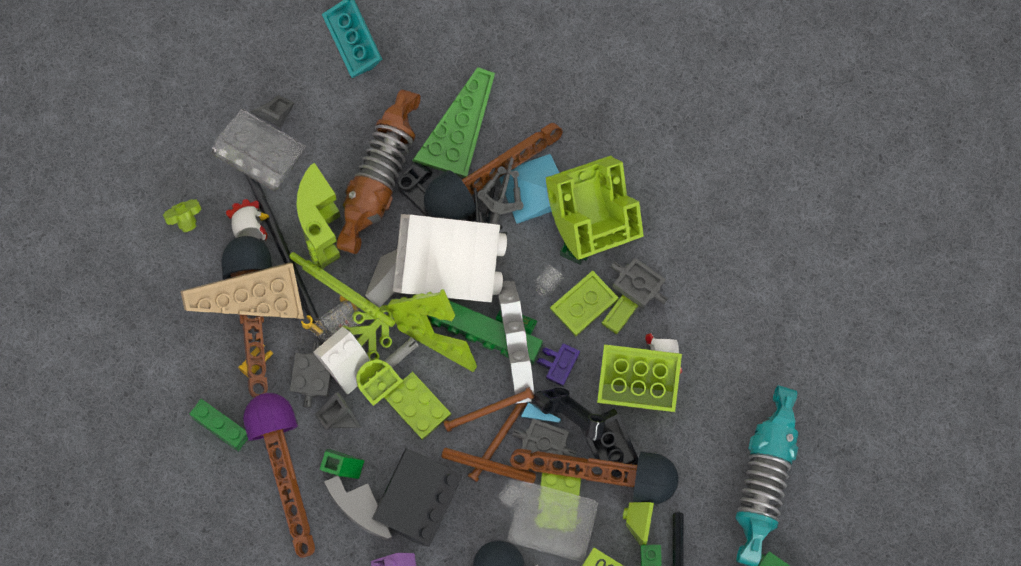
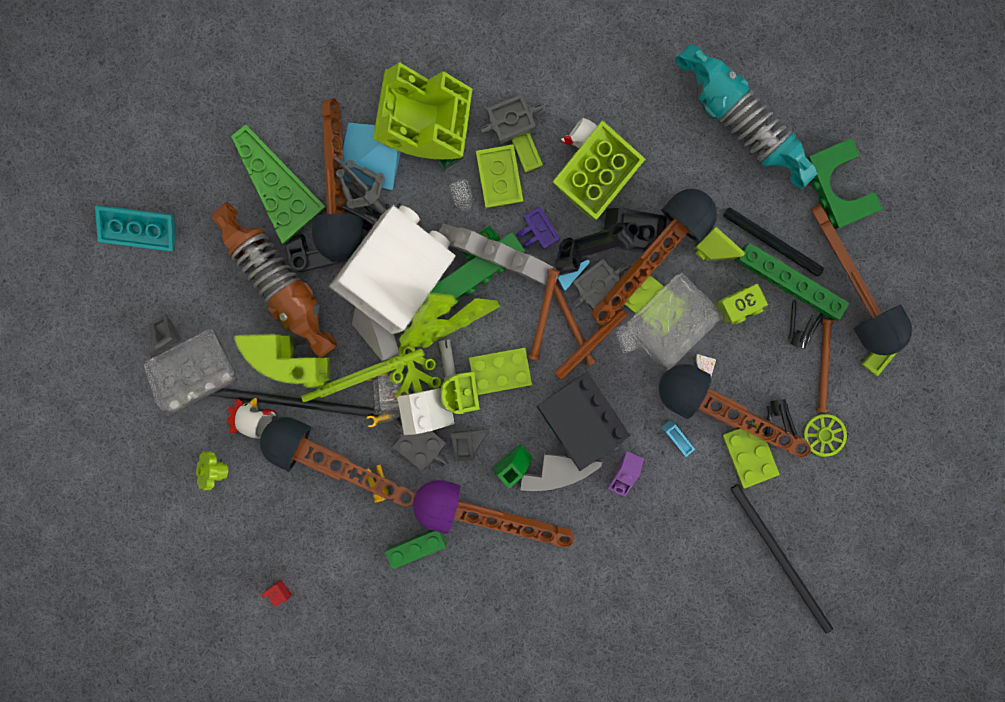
camera: 60 degrees left, 15 degrees up
(108, 333) = (277, 593): none -> red panel
(256, 294) = (322, 452): tan wing -> none

